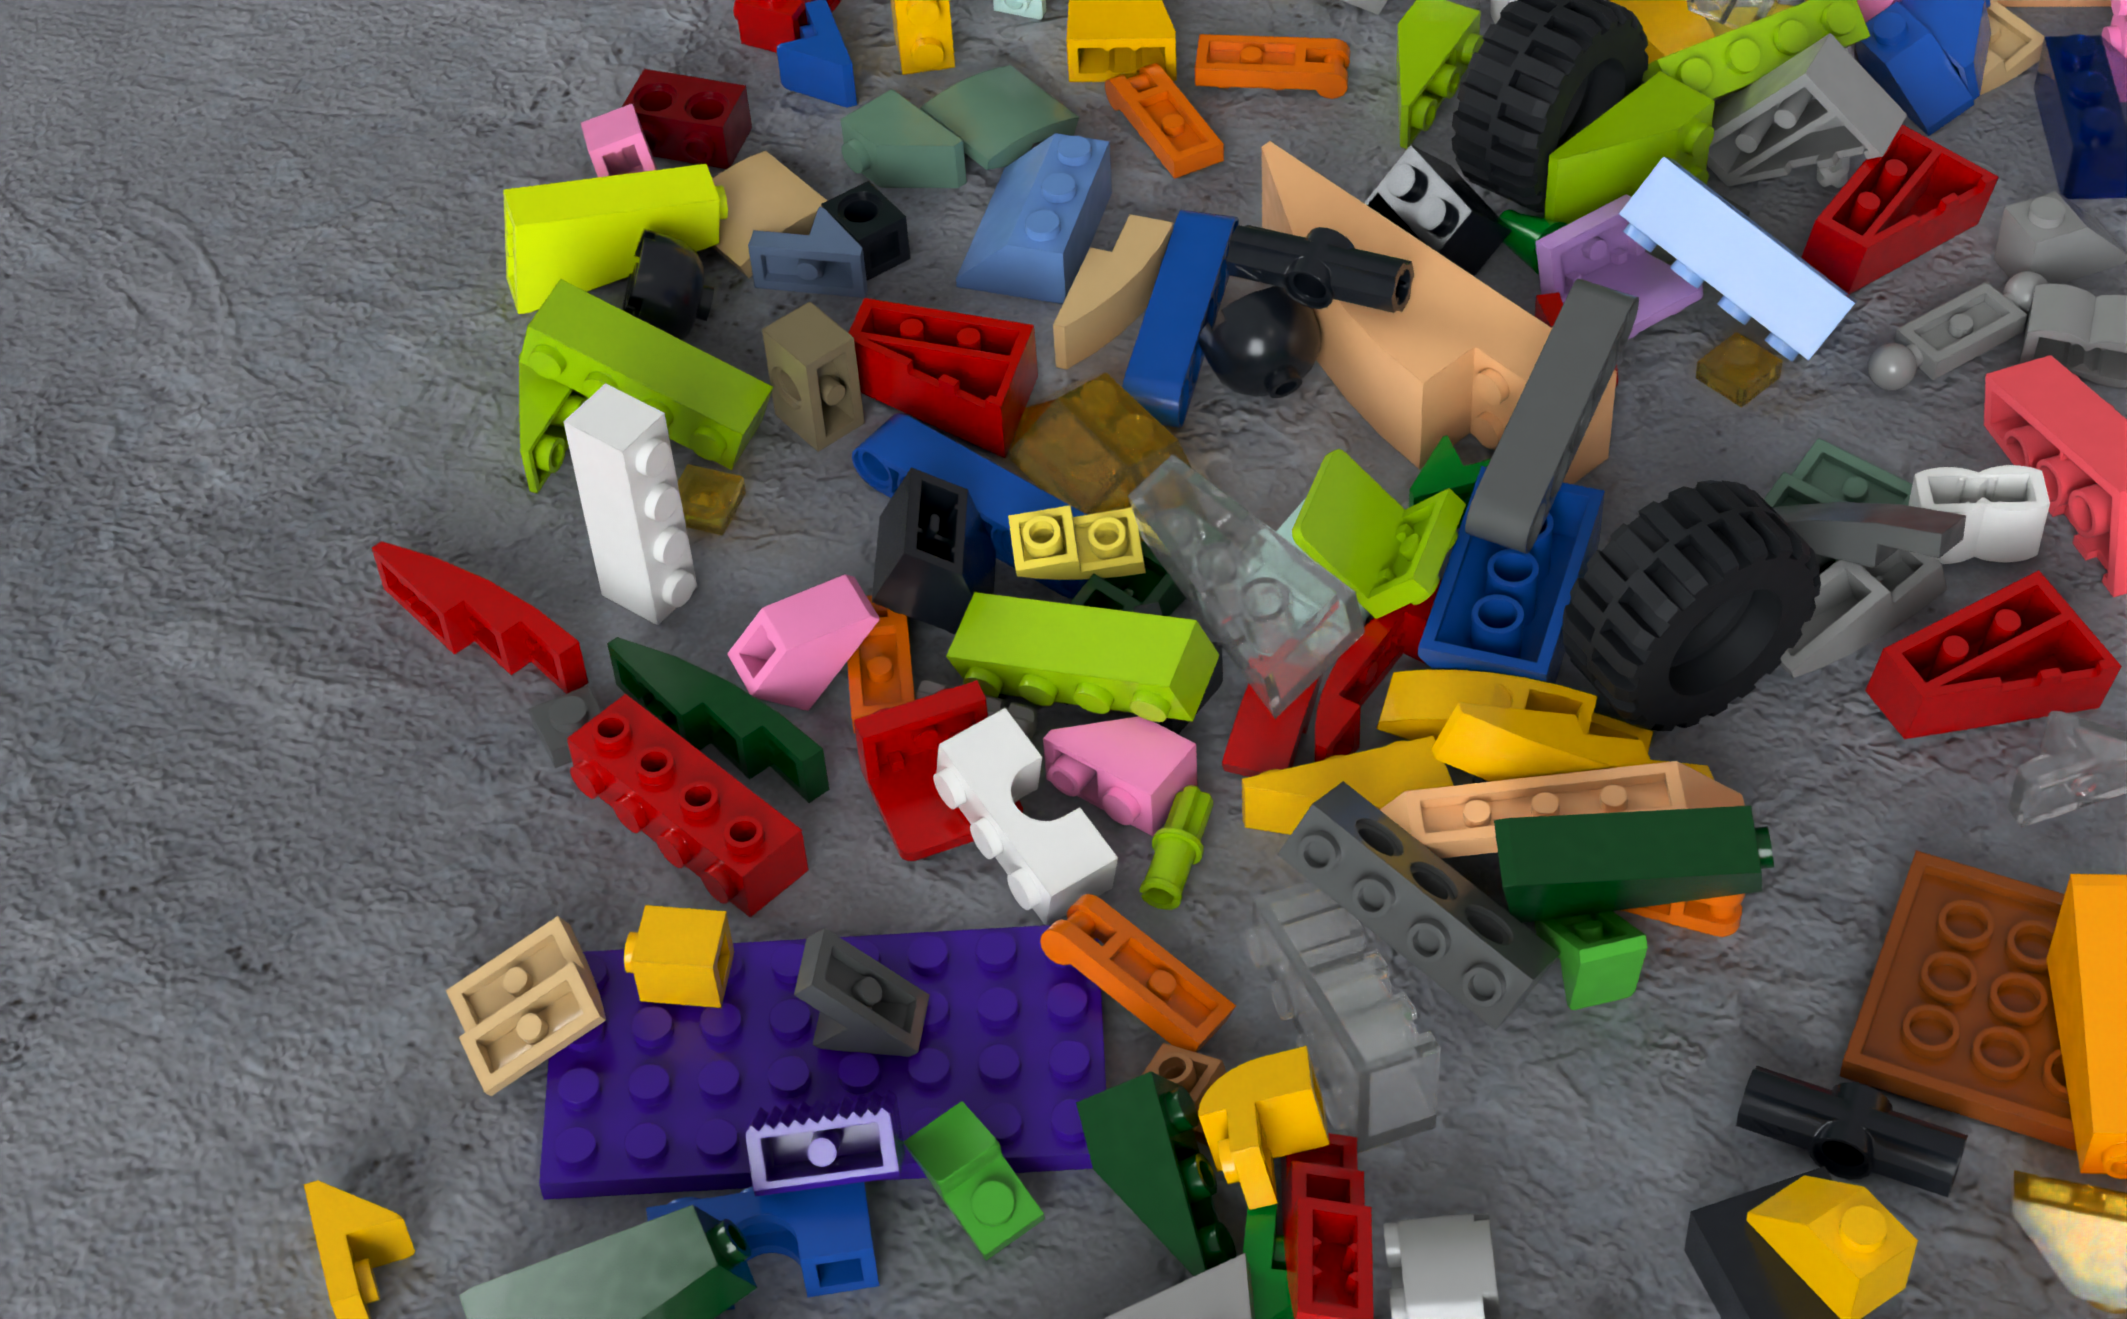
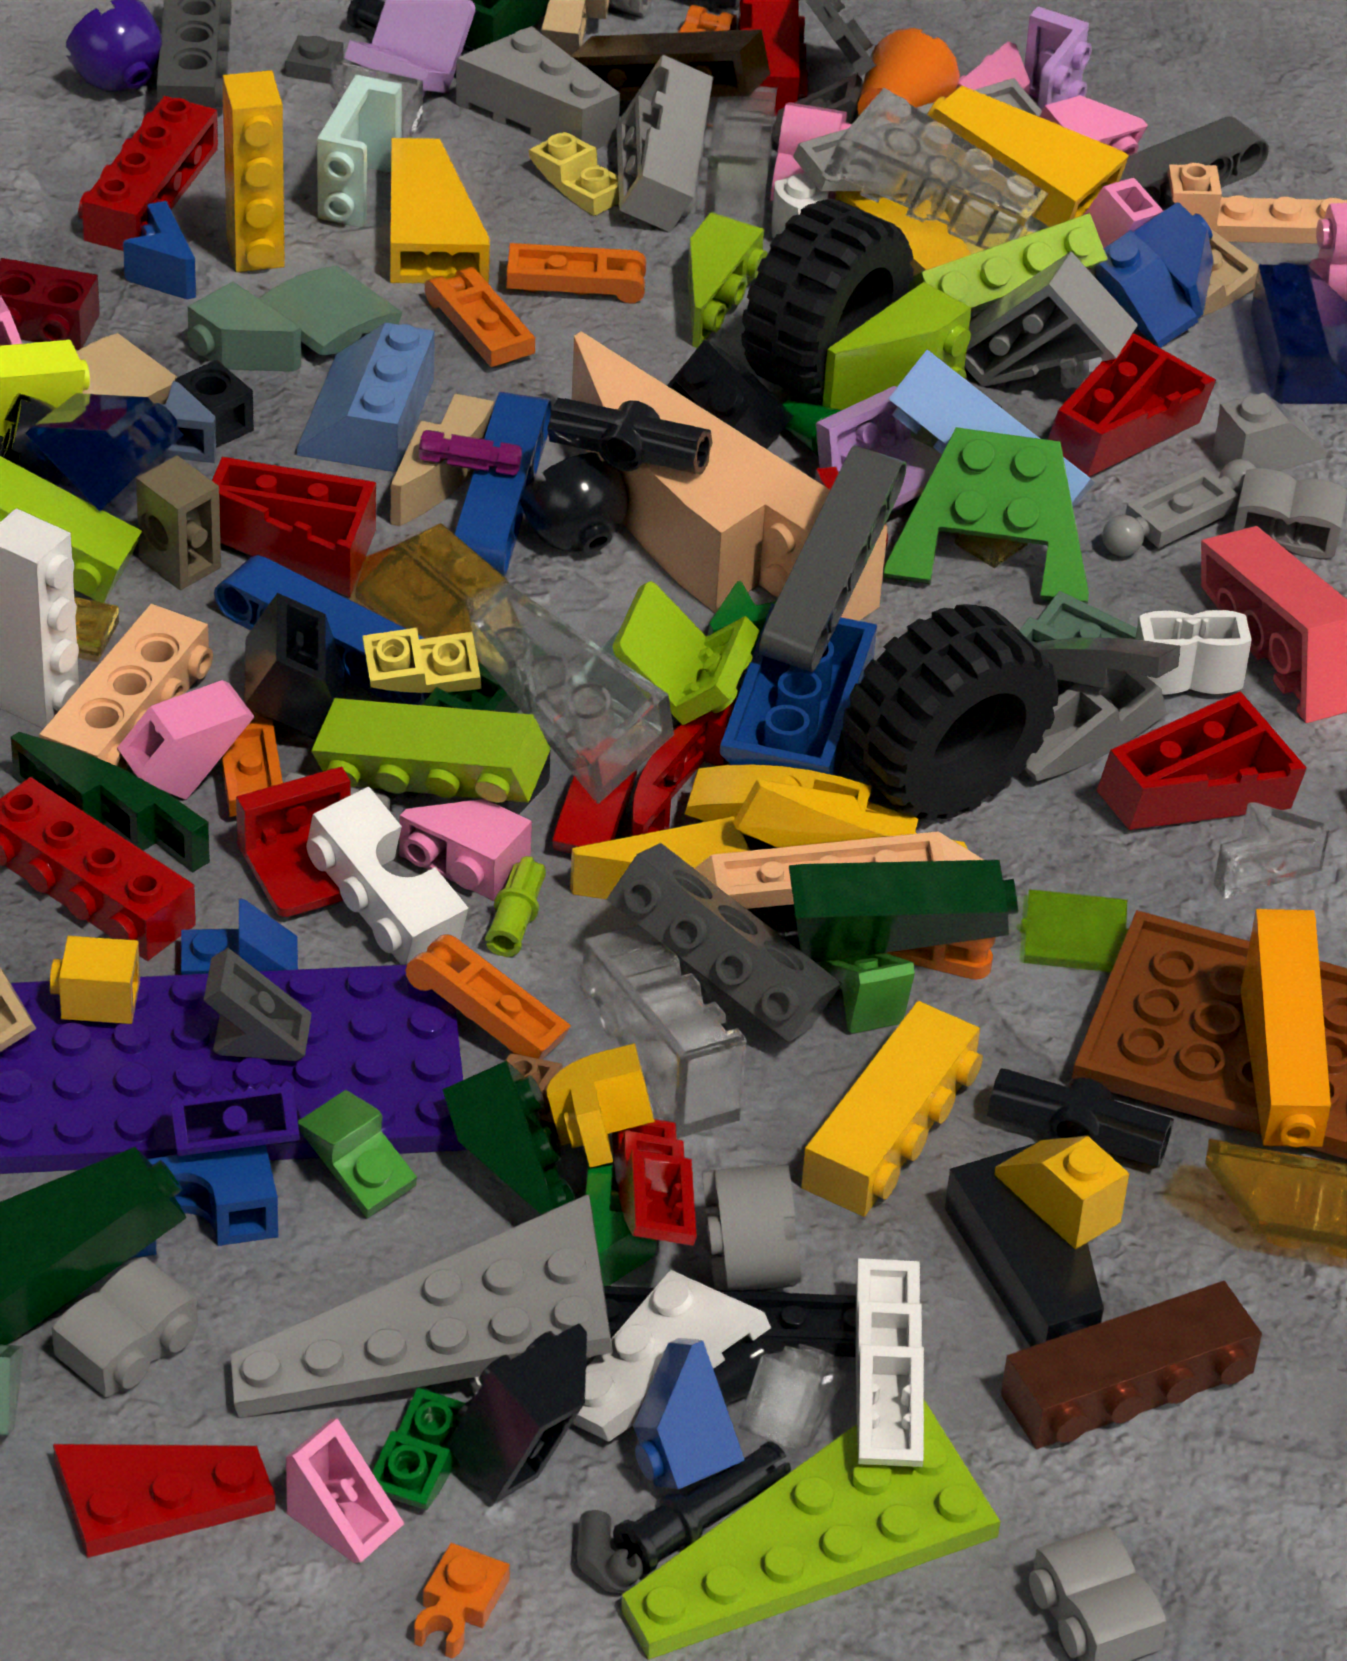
camera: 10 degrees left, 5 degrees down
(734, 283) = (105, 441): none -> clear blue slope
(762, 560) = (147, 666): none -> light nougat brick
(868, 903) = (257, 941): none -> blue slope
(1142, 286) = (470, 452): none -> magenta axle
(1618, 1120) = (892, 1109): none -> yellow brick
(1745, 320) = (998, 491): none -> bright green wing
(1840, 872) = (1073, 930): none -> clear neon green piece

